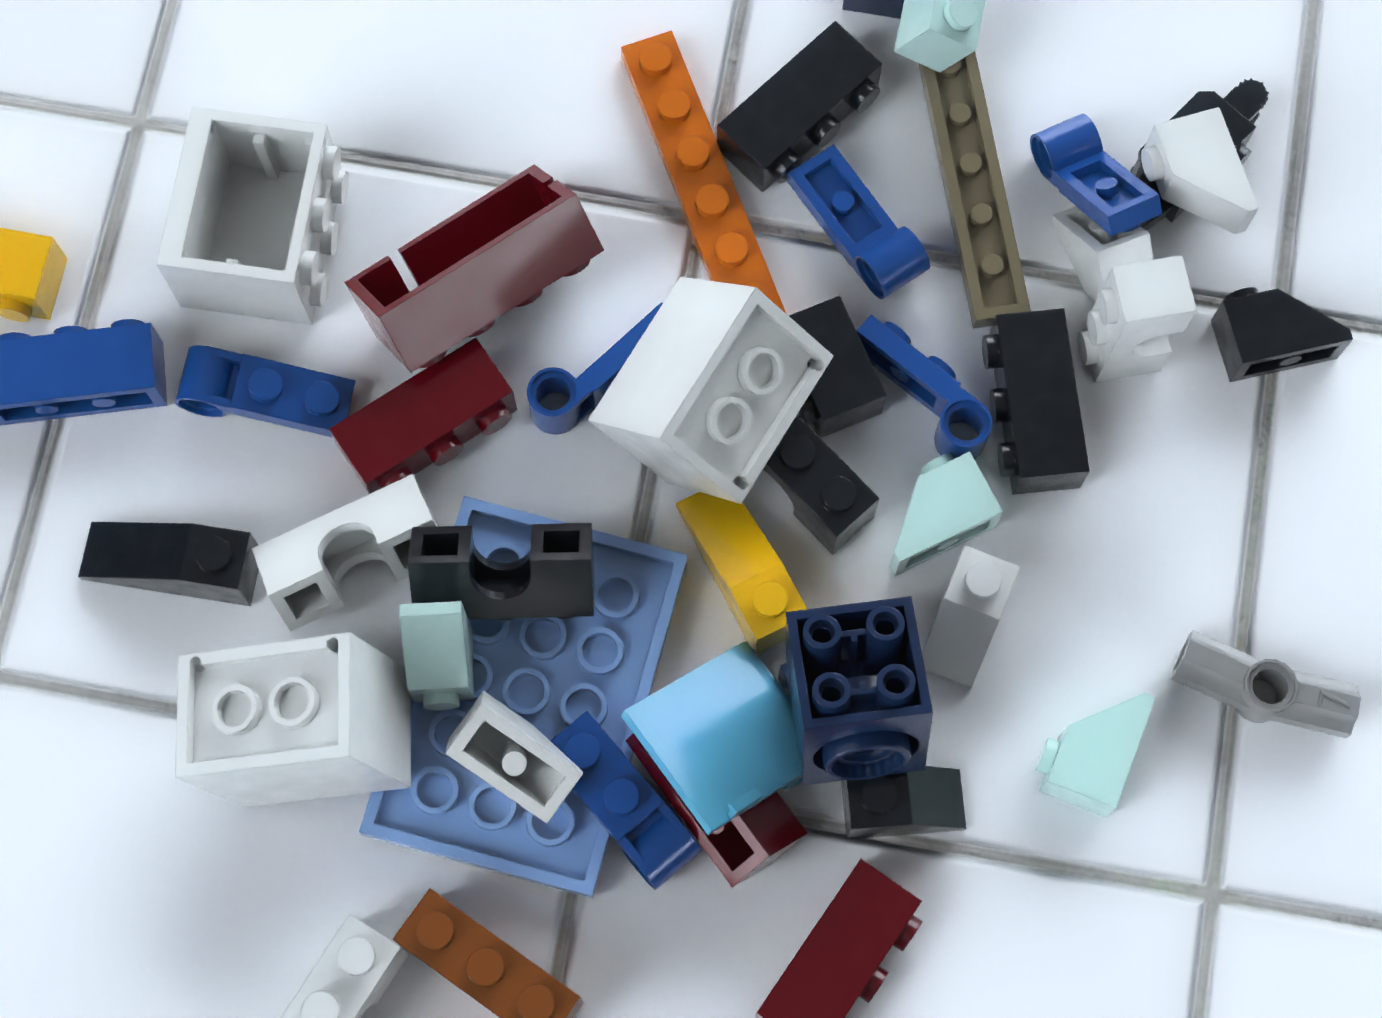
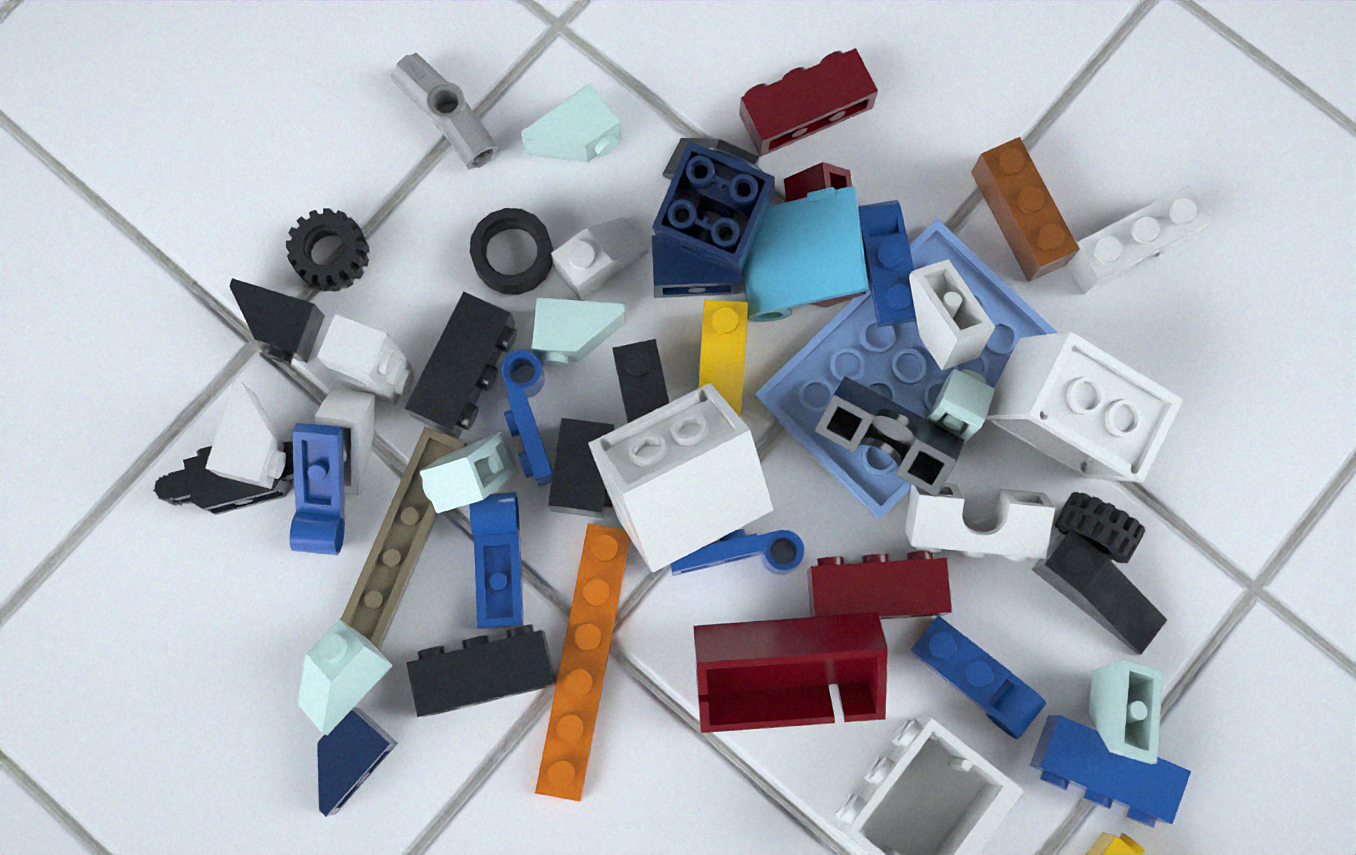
camera: 150 degrees left, 5 degrees up
(80, 428) = (1127, 708): none -> light aqua slope
(204, 616) = (1101, 525): none -> black tyre
(945, 282) = (468, 473): none -> light aqua slope
(1098, 530) = (500, 221): none -> black tyre
(1298, 421) = (321, 226): none -> black tyre

